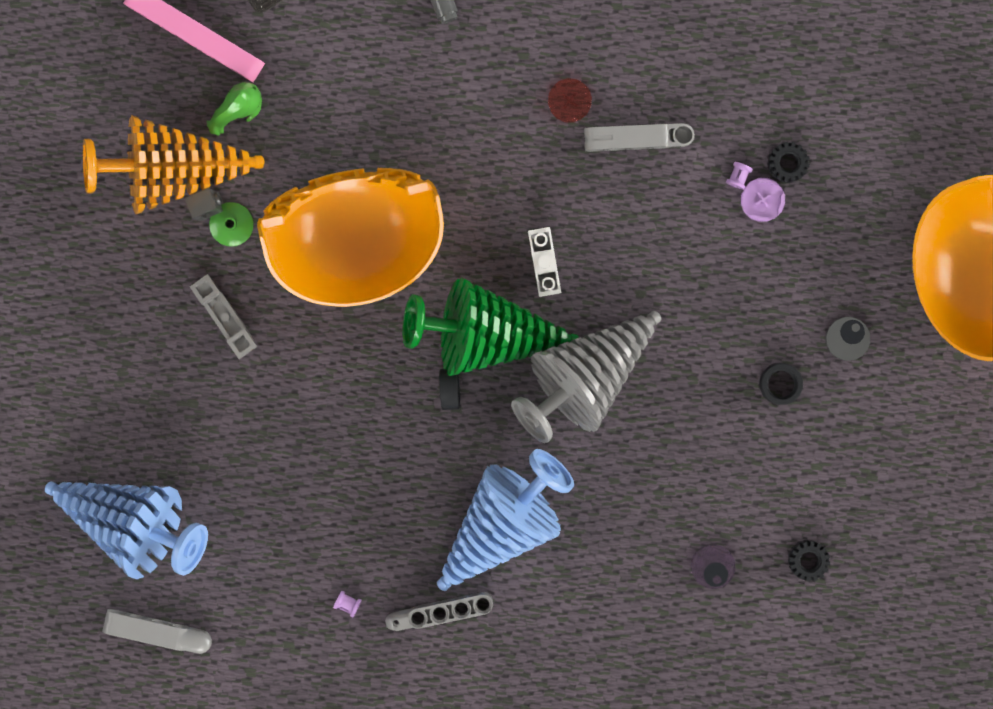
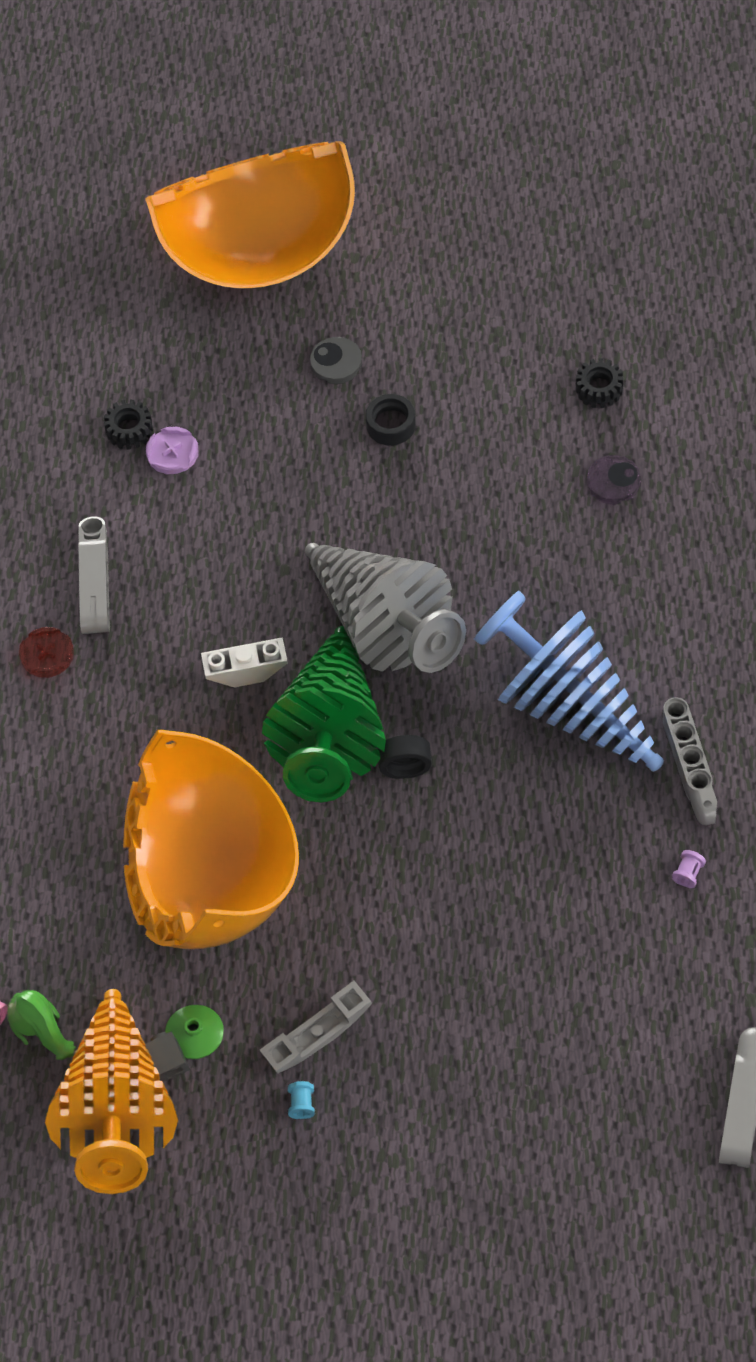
camera: 80 degrees left, 30 degrees down
(130, 523) = (598, 1100): light blue plant -> none
(167, 305) = (301, 1100): none -> medium azure bush
(745, 170) = (142, 471): lavender bush -> none

